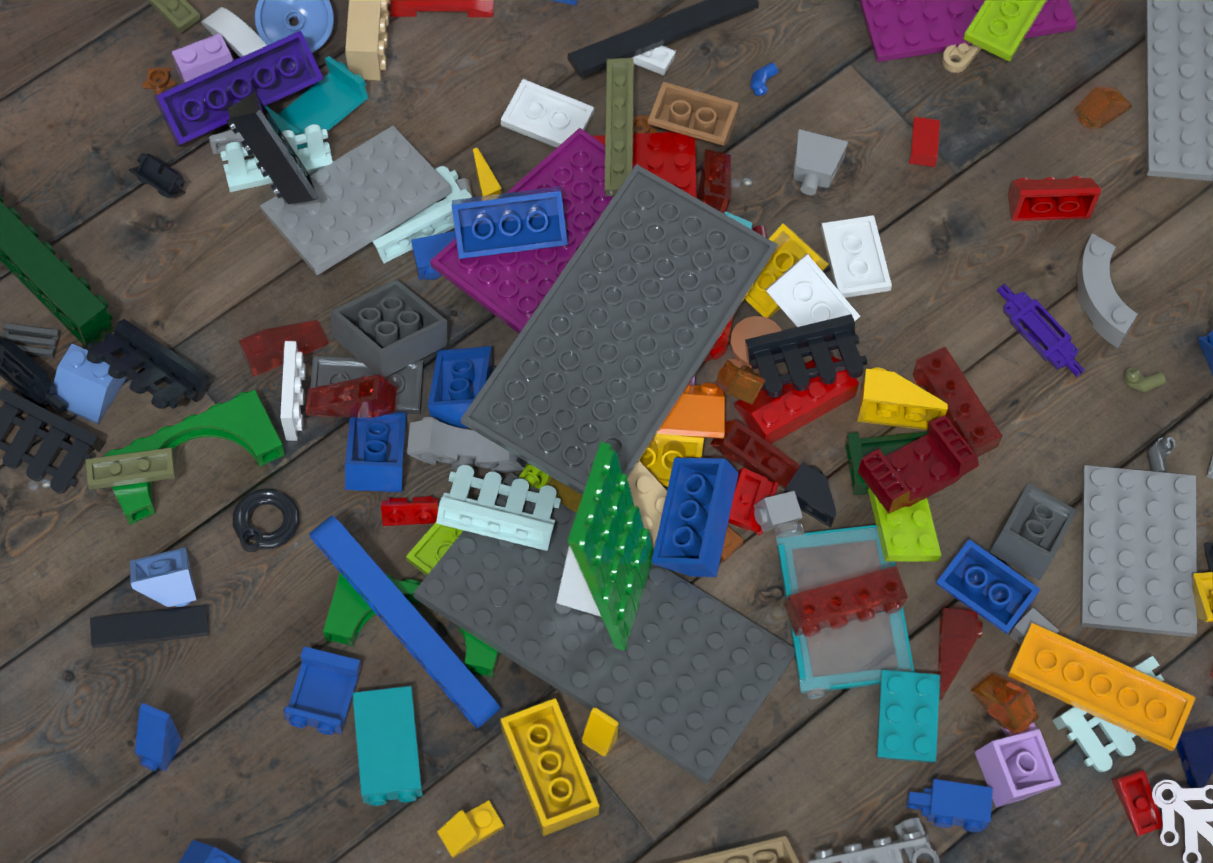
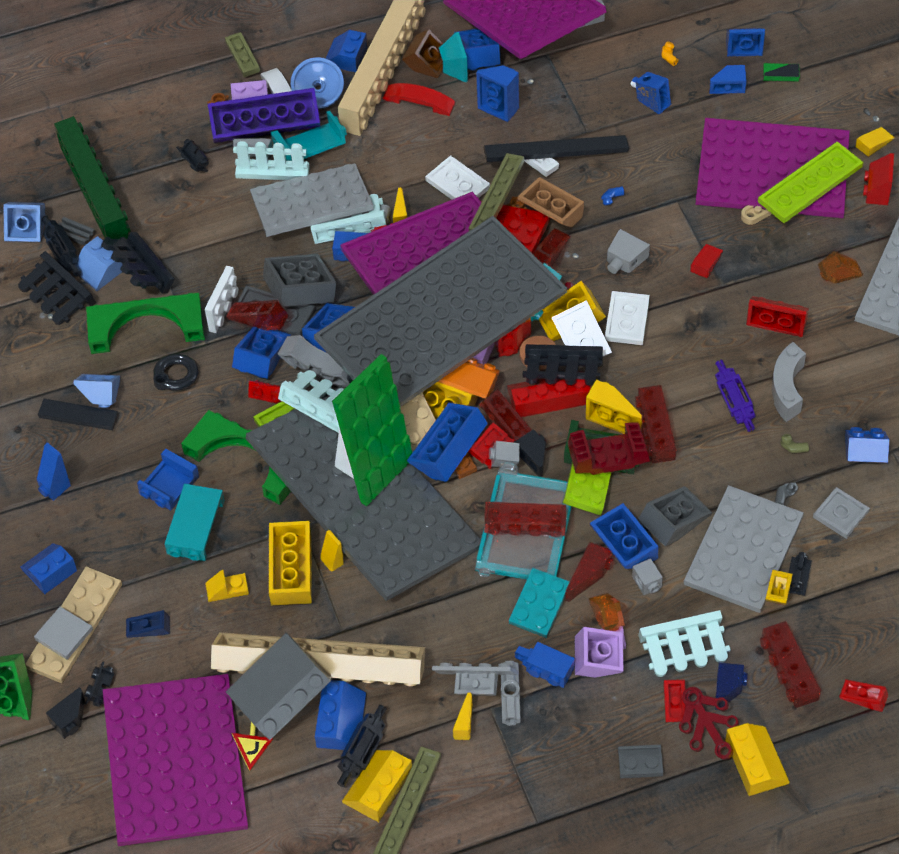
camera: 25 degrees right, 10 degrees down
(130, 468) = (101, 316): olive plate -> none
(266, 348) = (214, 268): clear red slope -> none
(272, 150) = (264, 150): black slope -> none
(404, 621) = (234, 451): blue beam -> none
(509, 222) = (399, 232): blue slope -> none
(739, 380) = (510, 366): clear orange slope -> none
(1102, 686) = (674, 616): light orange plate -> none

